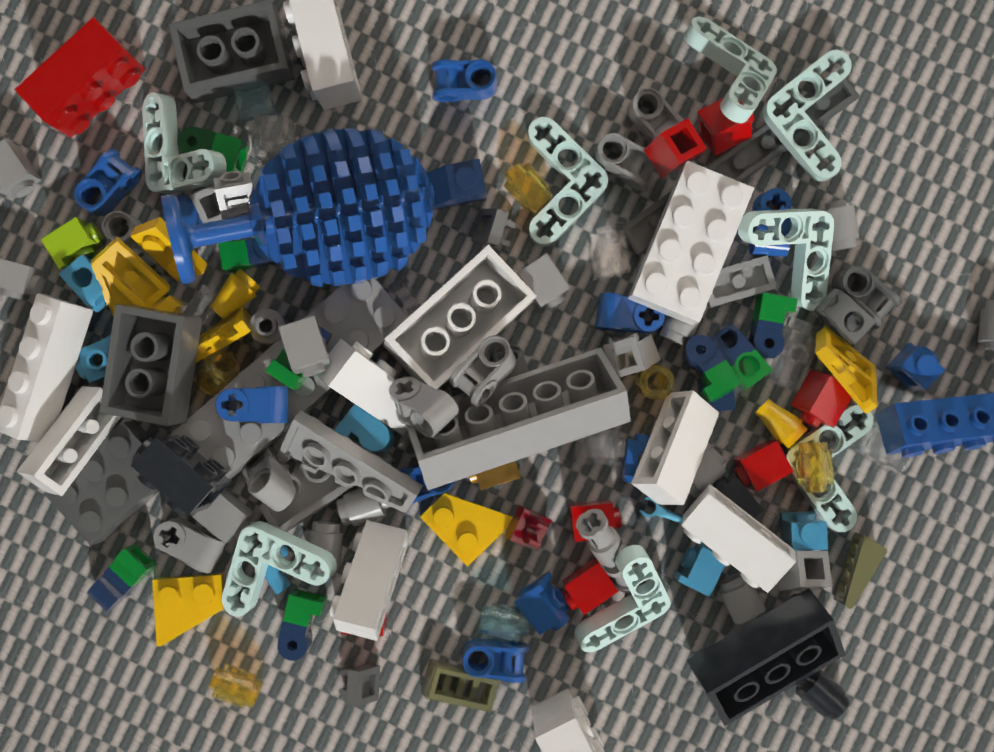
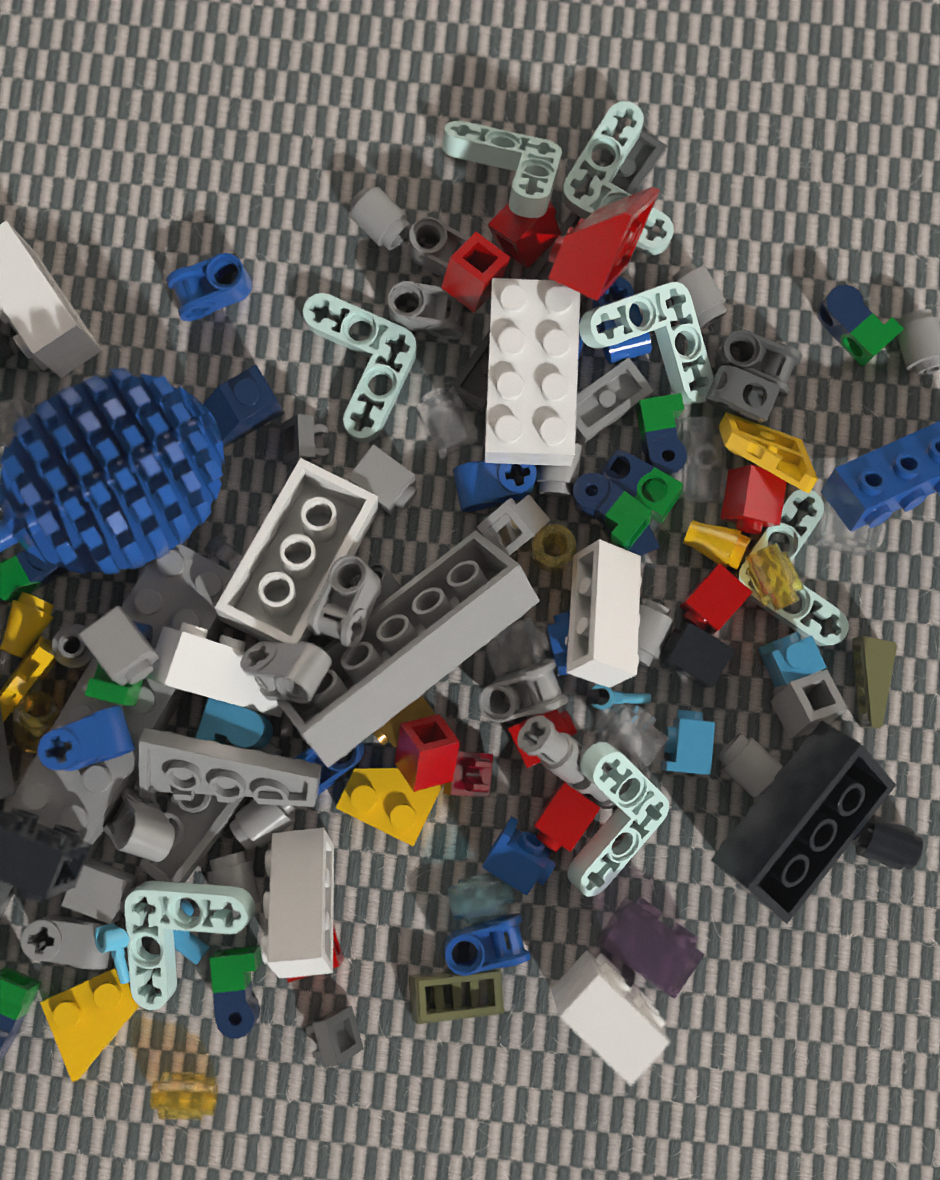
camera: 20 degrees left, 5 degrees down
(222, 556) = (114, 939): none -> medium azure hand
(503, 503) = (426, 752): none -> red brick
(528, 187) = (326, 379): clear yellow brick -> none
(598, 484) = (530, 692): none -> light grey piece
(615, 73) = (380, 217): none -> light grey brick
(616, 704) = (650, 946): none -> clear purple brick
(661, 544) = (632, 735): none -> clear brick
(738, 539) = (716, 693): white brick -> none
(780, 162) = (601, 245): none -> red slope
(916, 367) = (847, 423): blue brick -> none
(951, 292) = (855, 325): none -> leg

